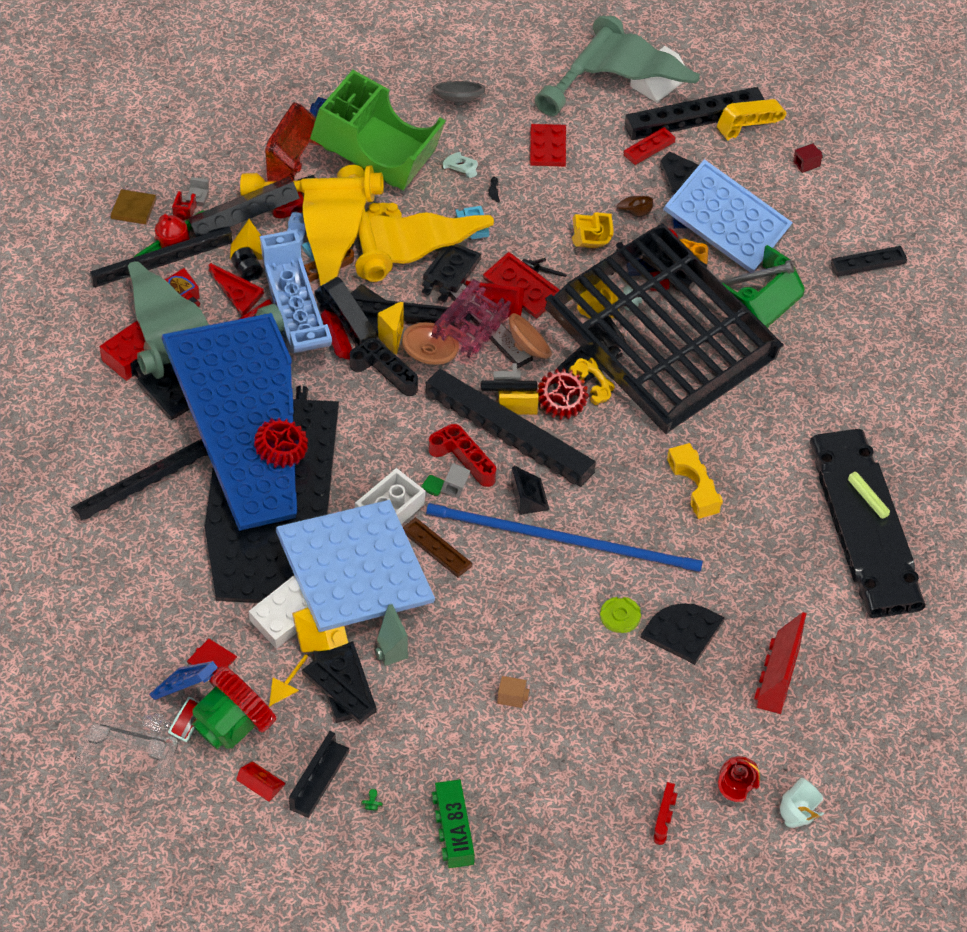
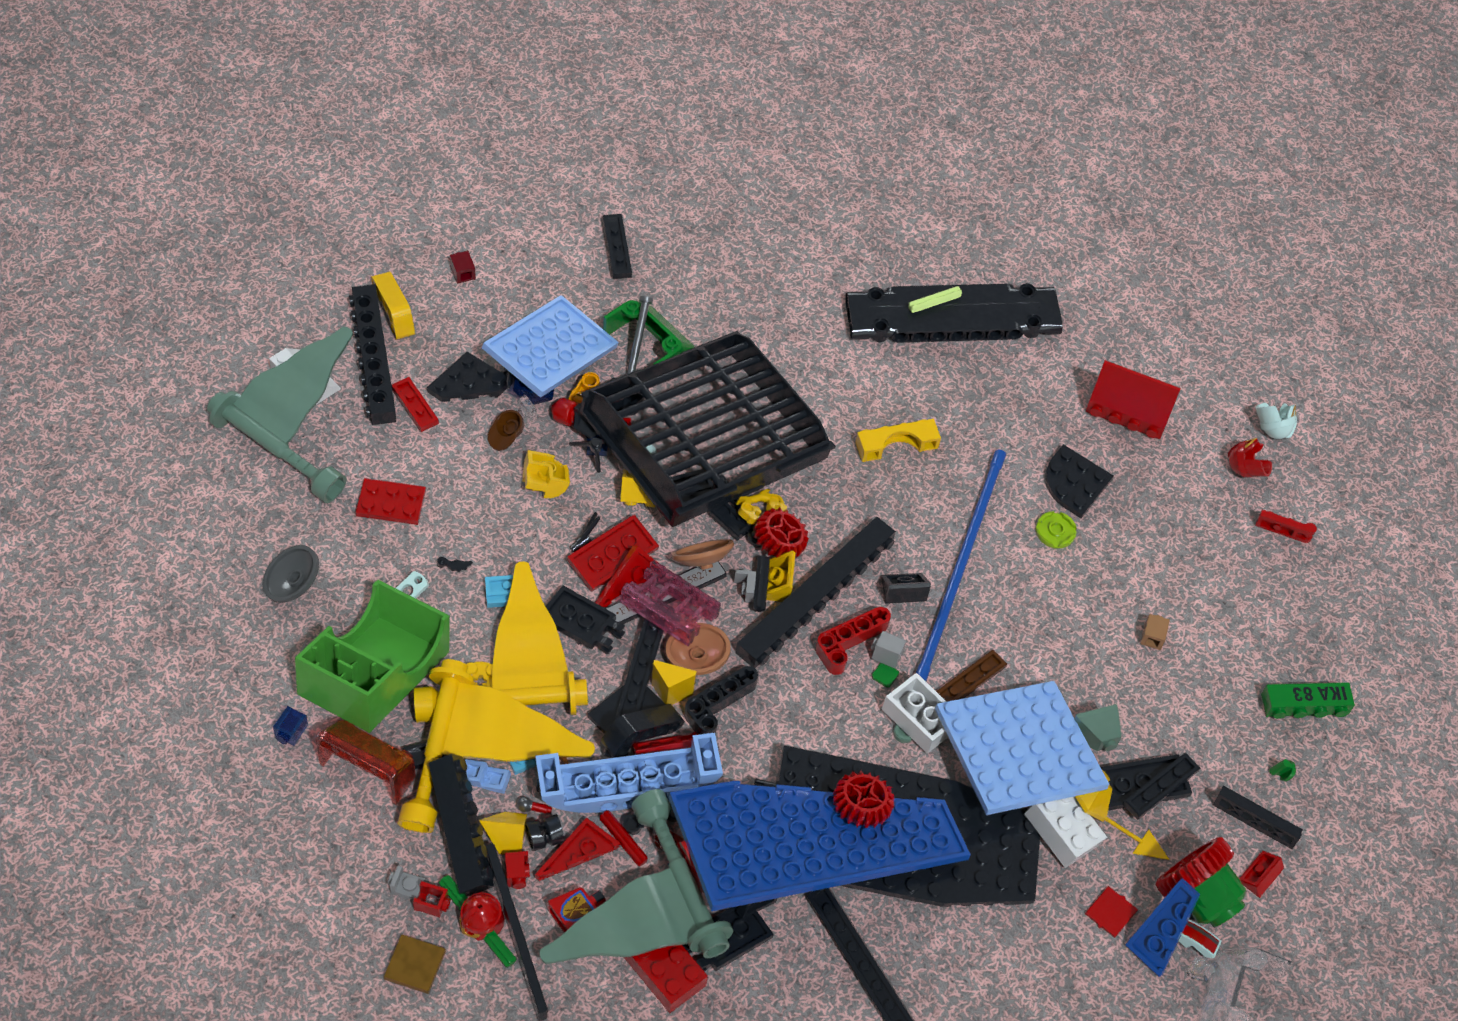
camera: 90 degrees left, 5 degrees up
(213, 252) = (517, 869): none -> red brick

